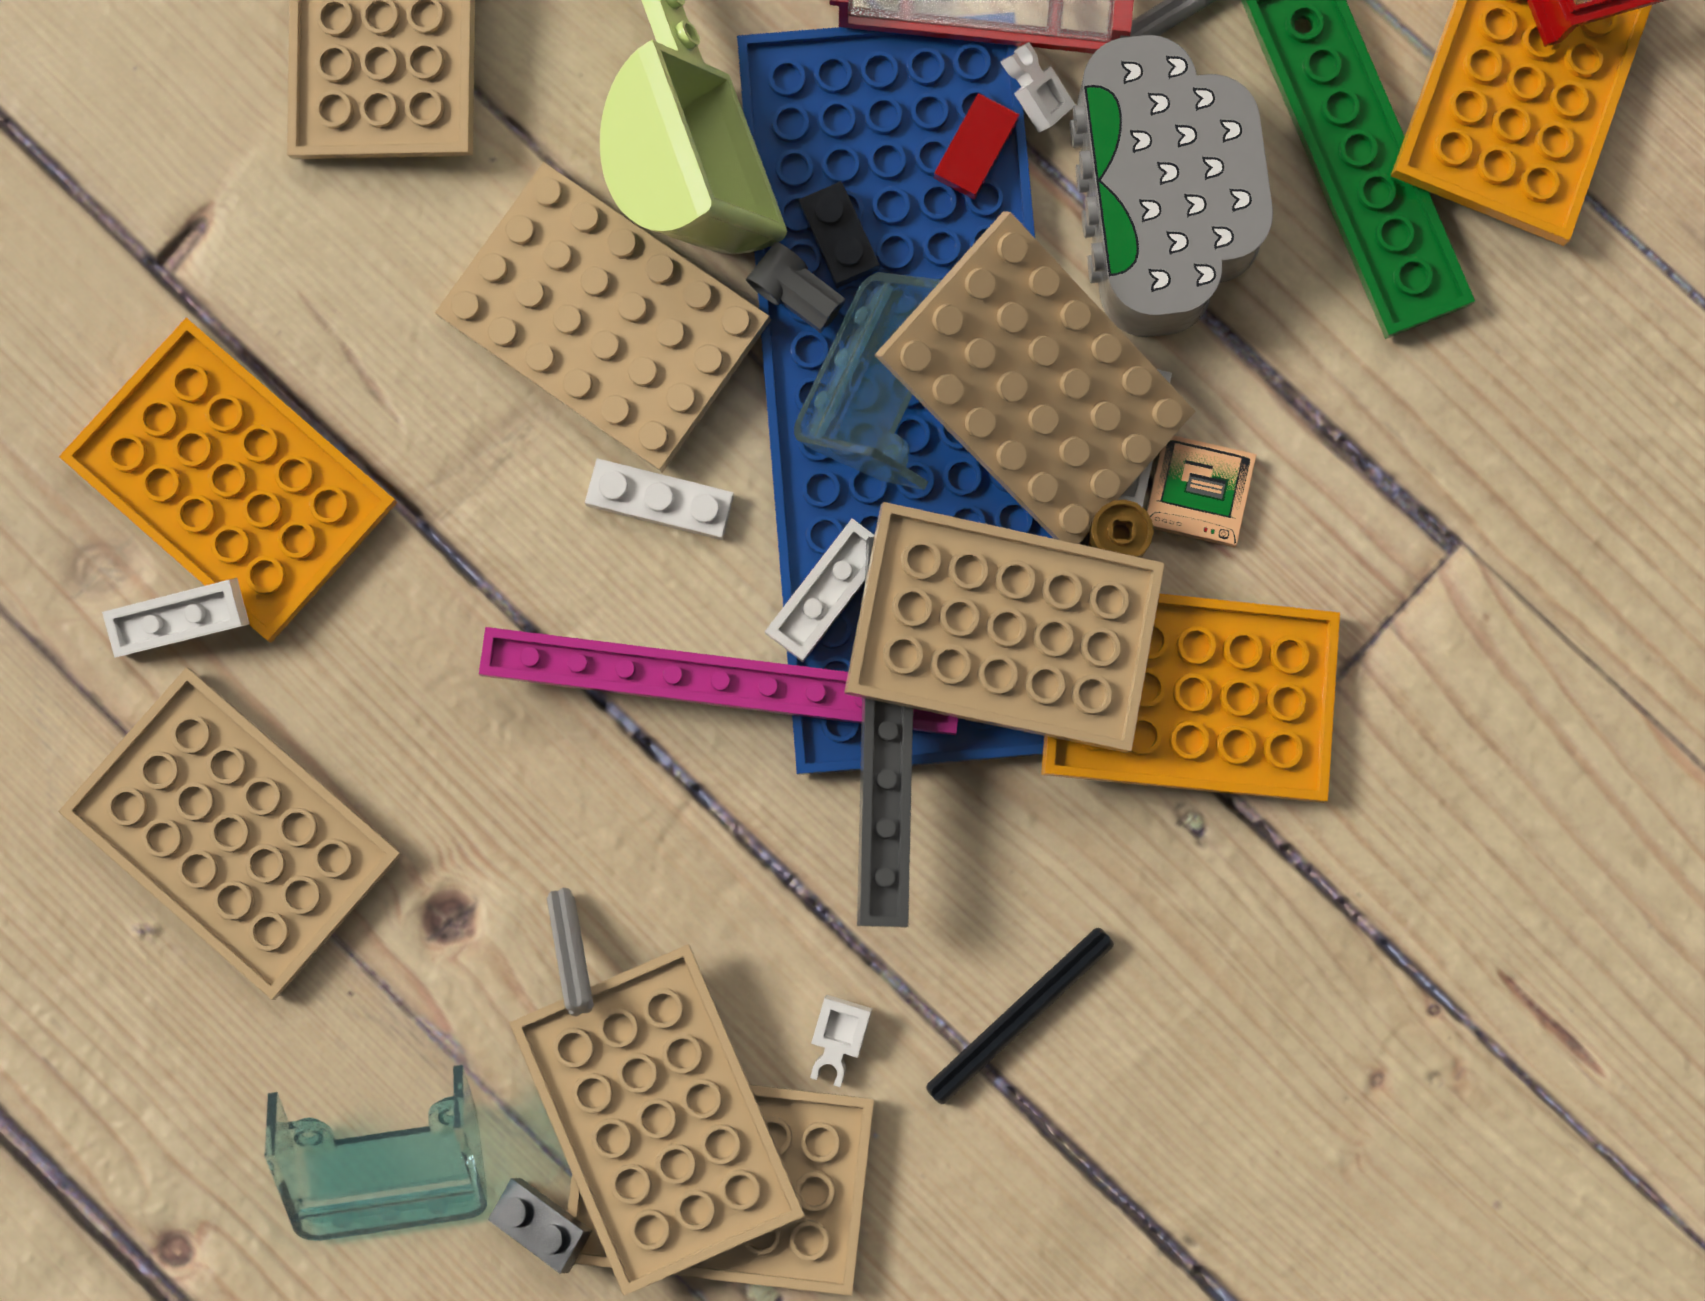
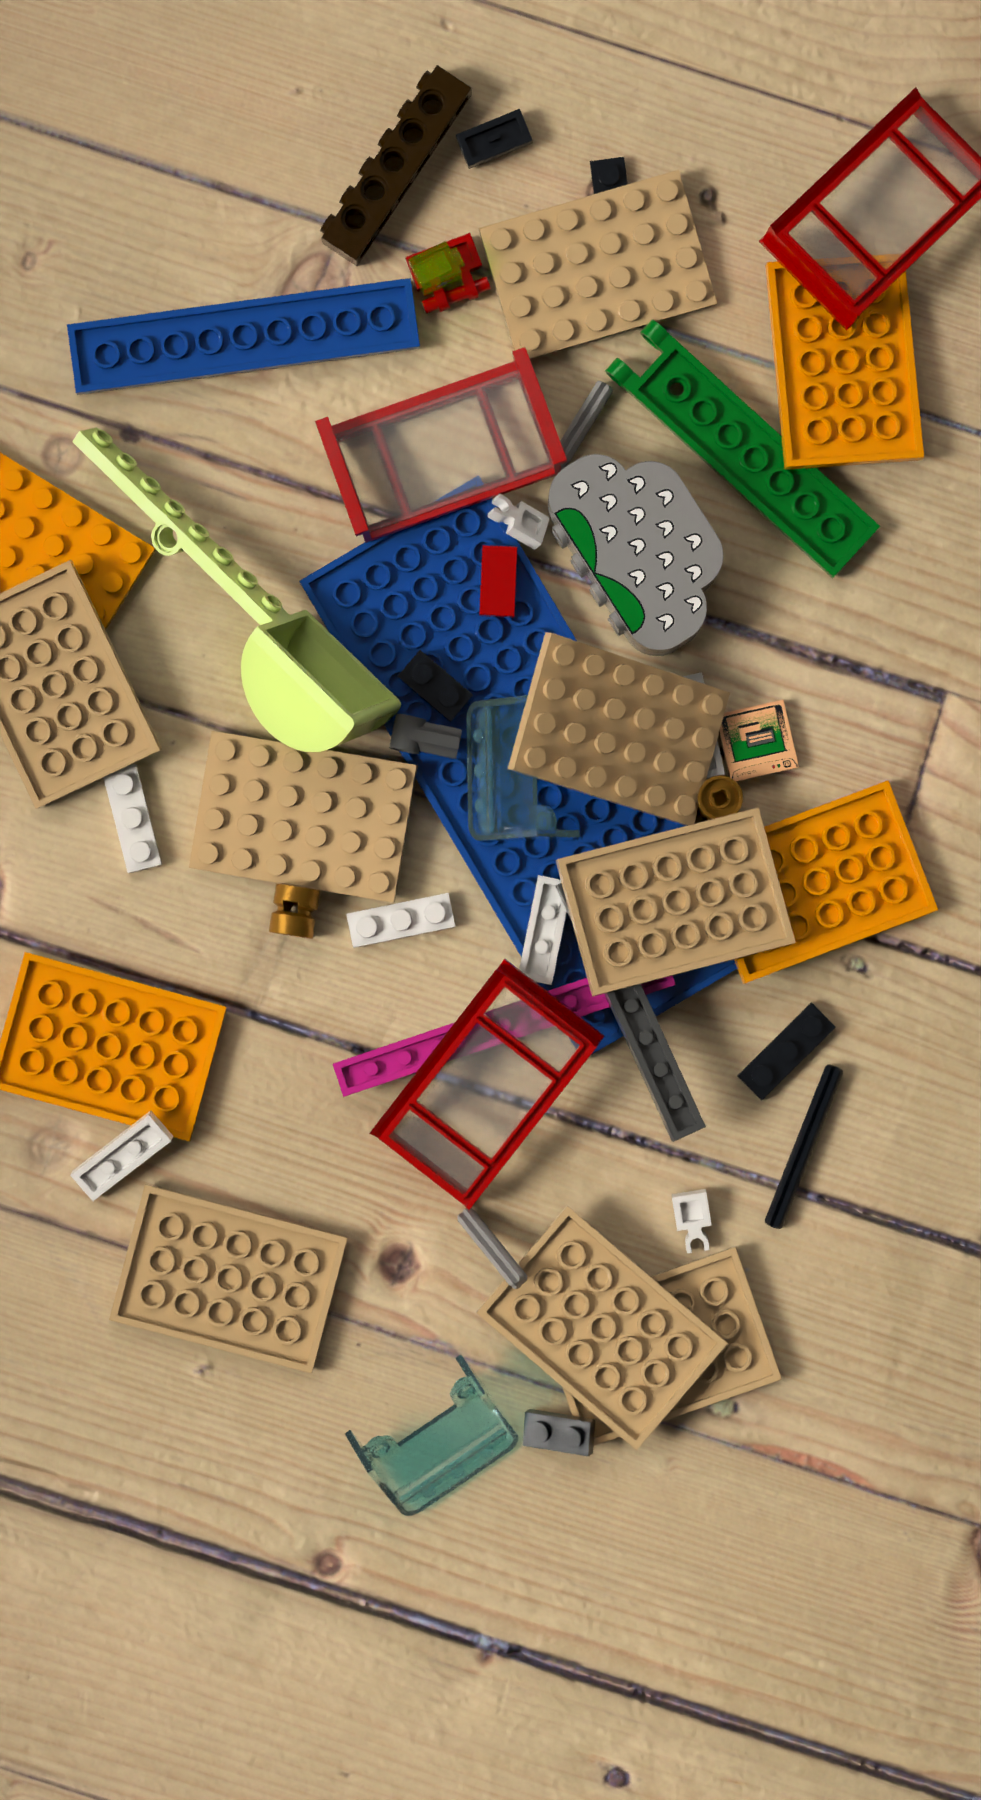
camera: 30 degrees left, 5 degrees up
(397, 225) = (132, 819): none -> white plate
(532, 440) = (290, 923): none -> pearl gold wheel
(662, 741) = (487, 1083): none -> piece
(1054, 886) = (786, 1051): none -> black plate

